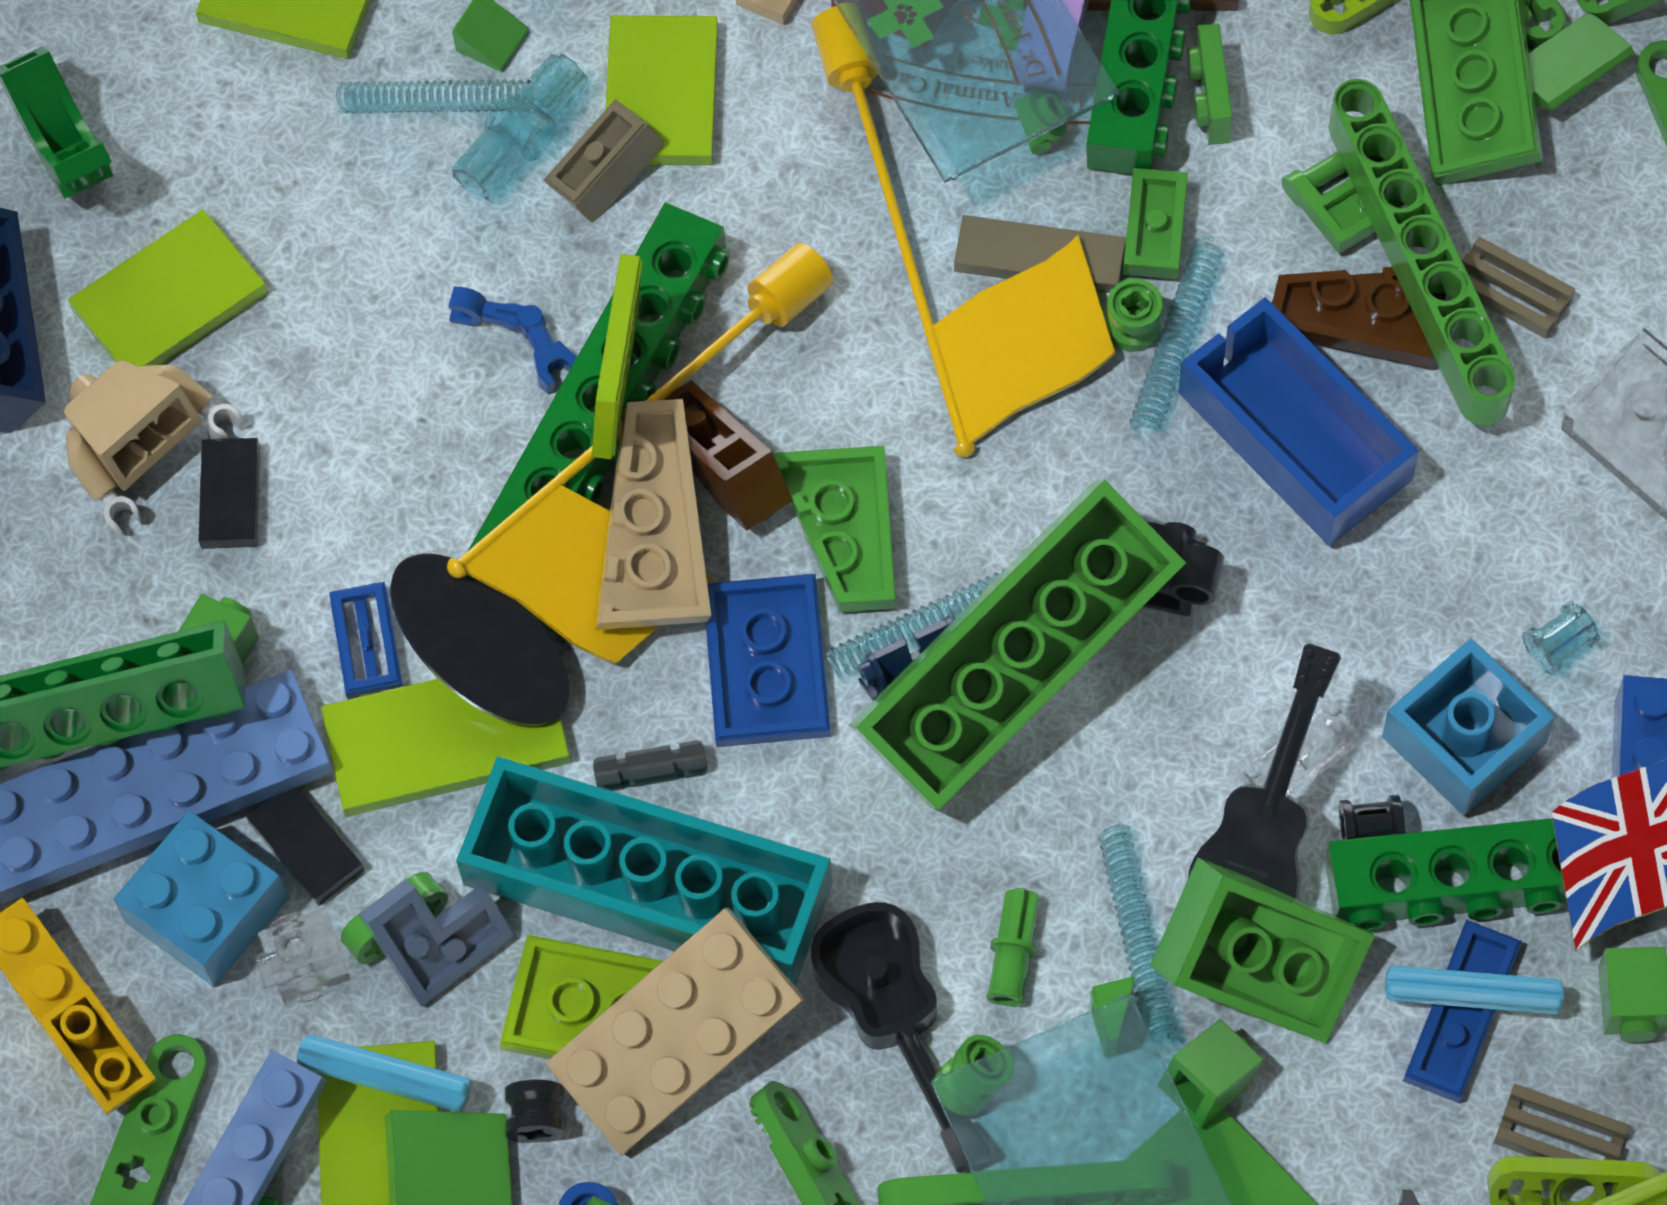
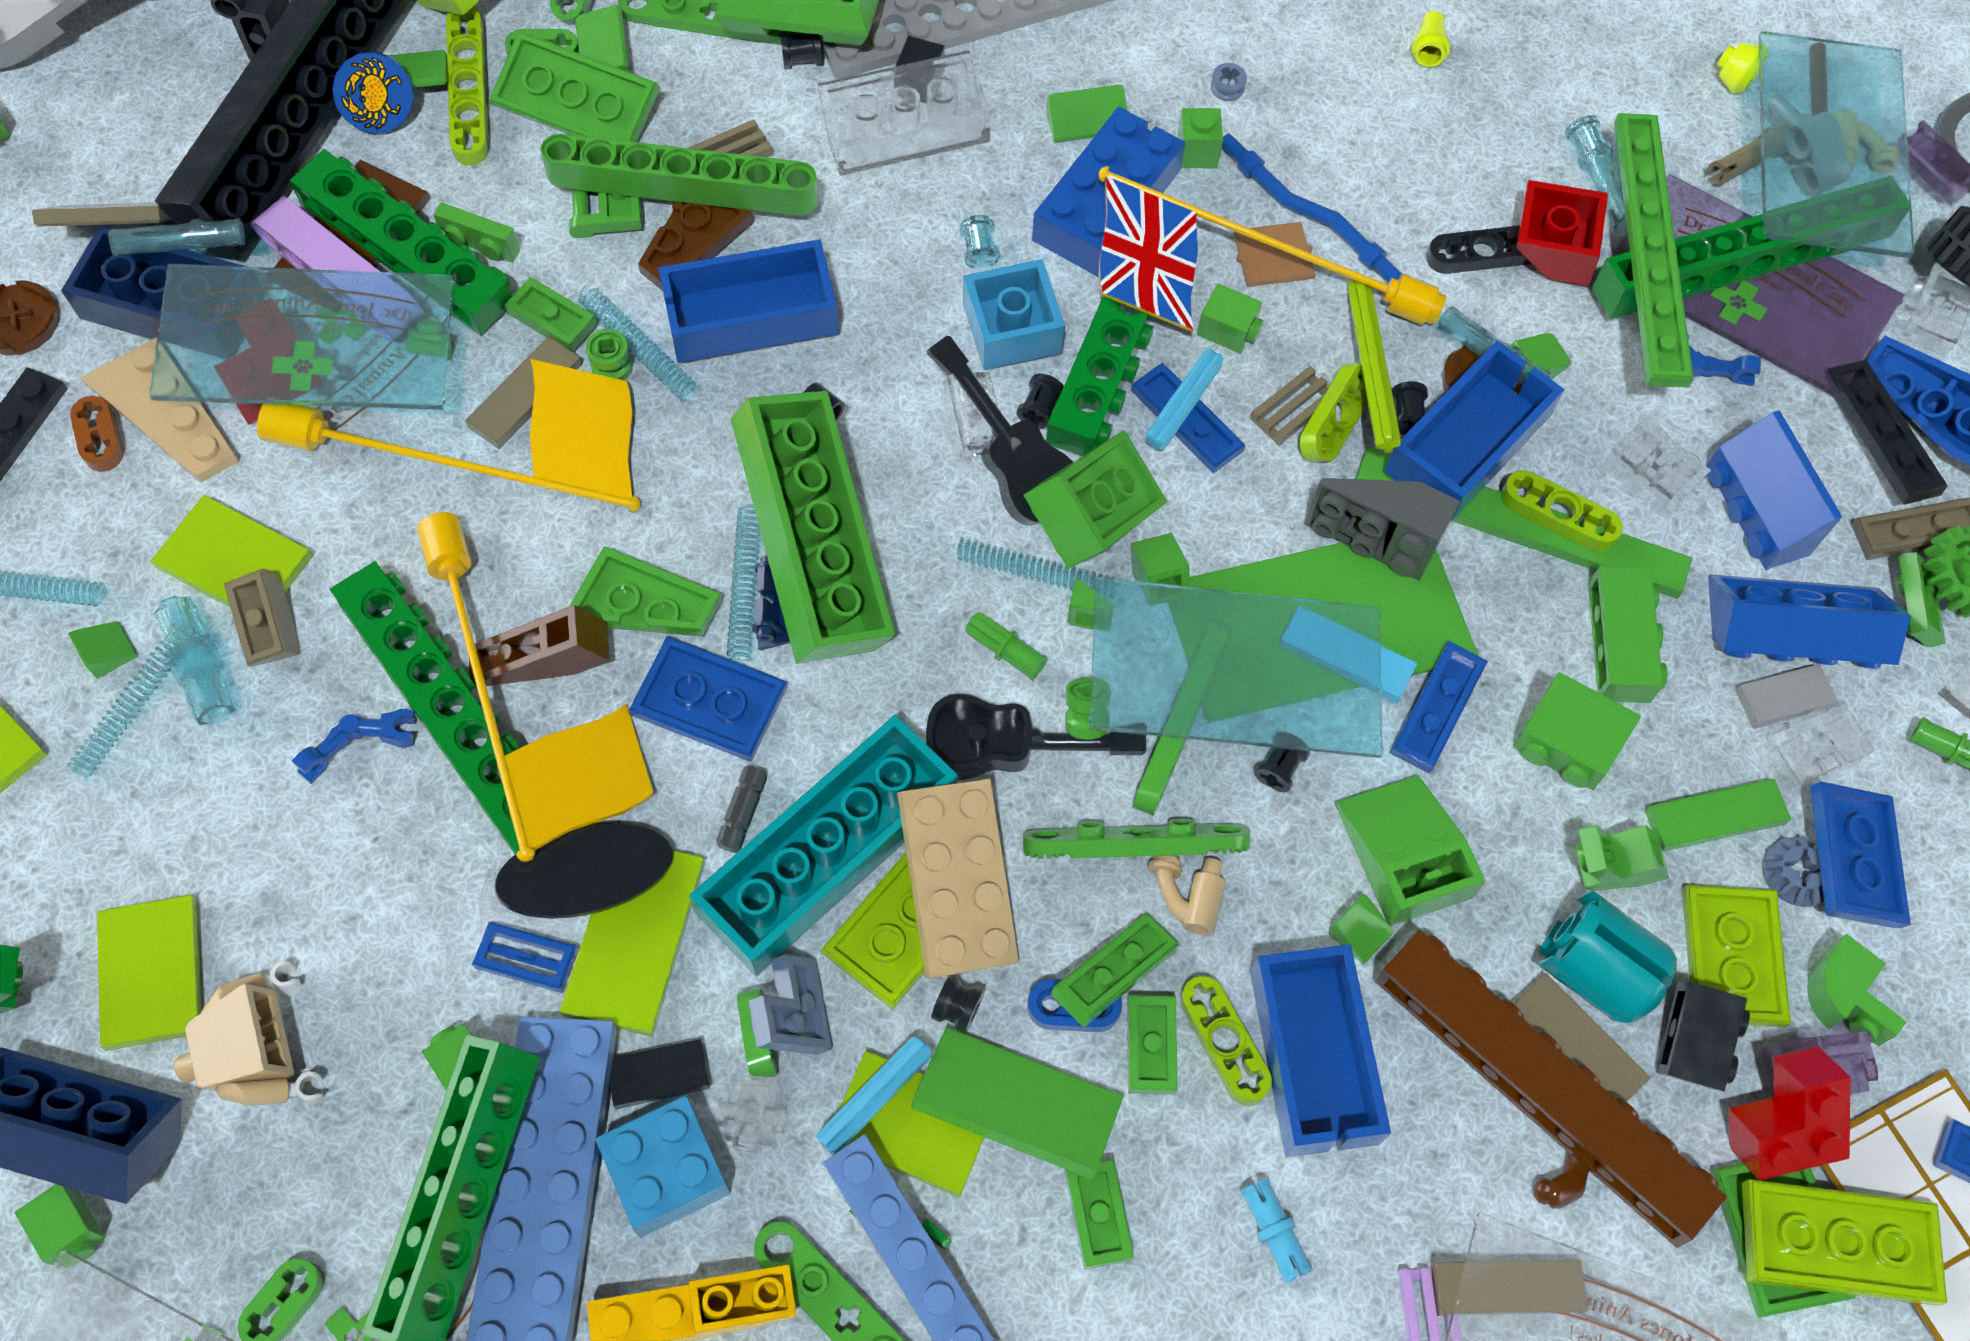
camera: 70 degrees left, 0 degrees up
(229, 493) = (343, 1000): black tile -> none
(617, 356) = (440, 662): lime tile -> none
(654, 535) = (580, 717): tan wing -> none

